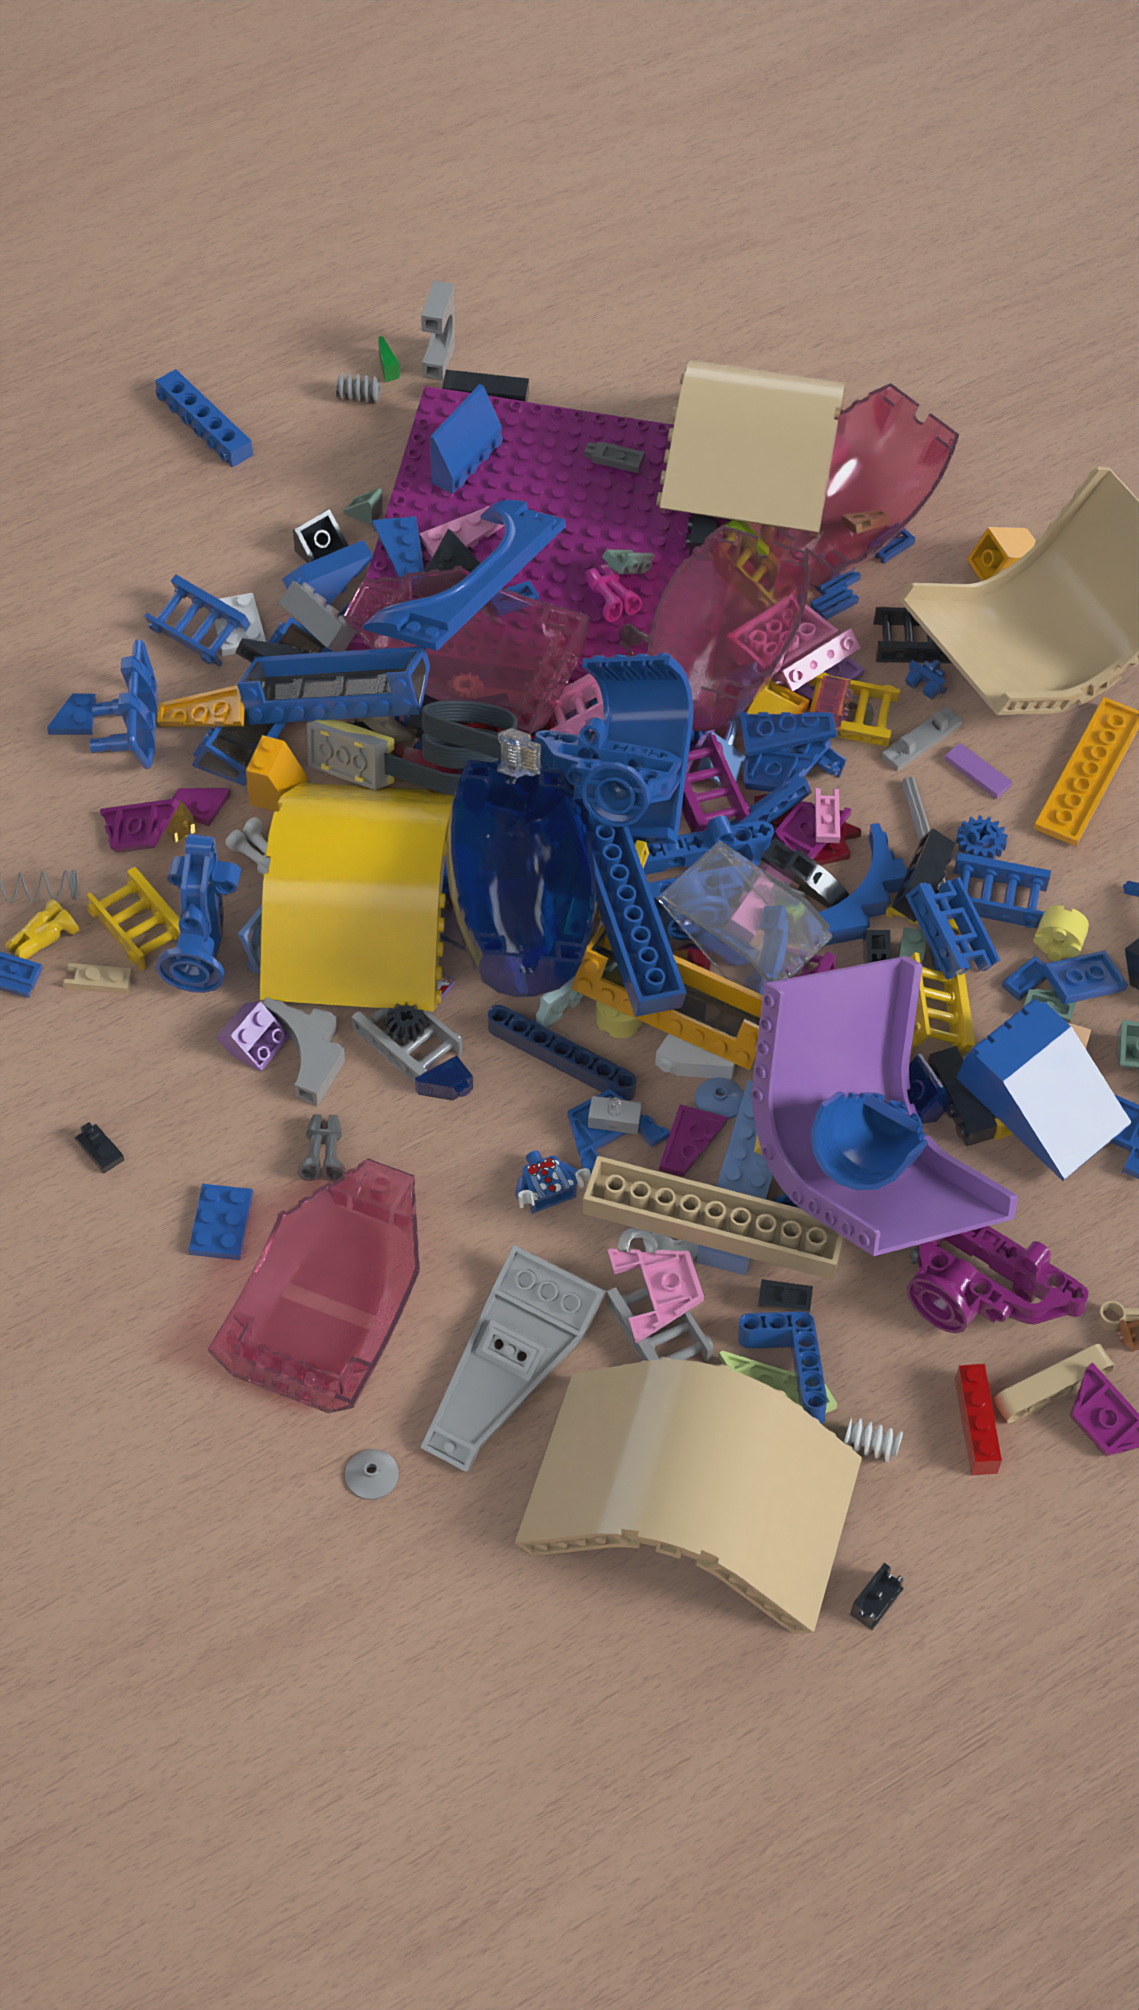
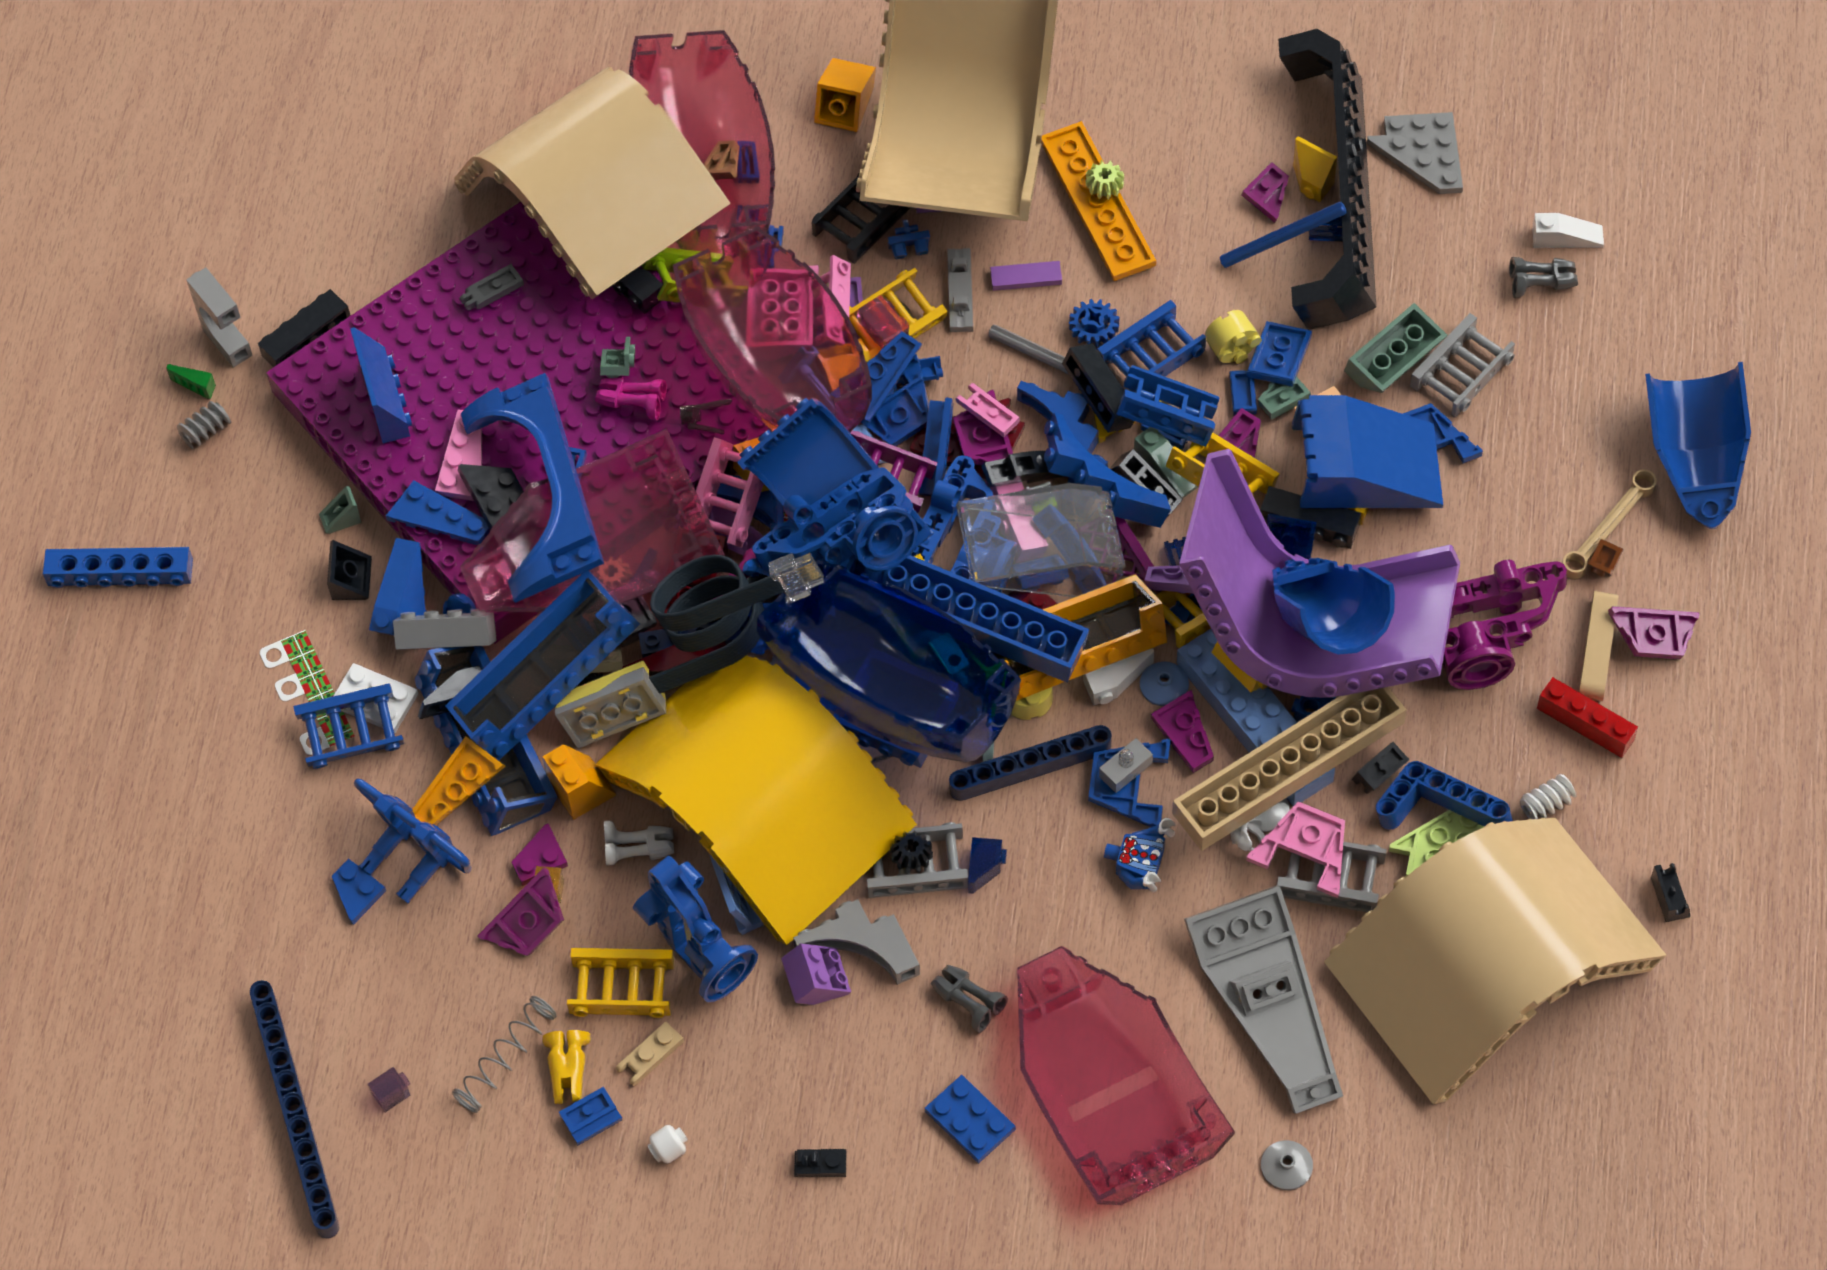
camera: 45 degrees left, 5 degrees up
(28, 1037) = (667, 1144): none -> white head
(219, 580) = (310, 680): none -> piece
(838, 895) = (1070, 459): none -> blue arch
(988, 1001) = (1243, 432): none -> magenta wing
(1107, 758) = (1104, 179): none -> yellowish green gear

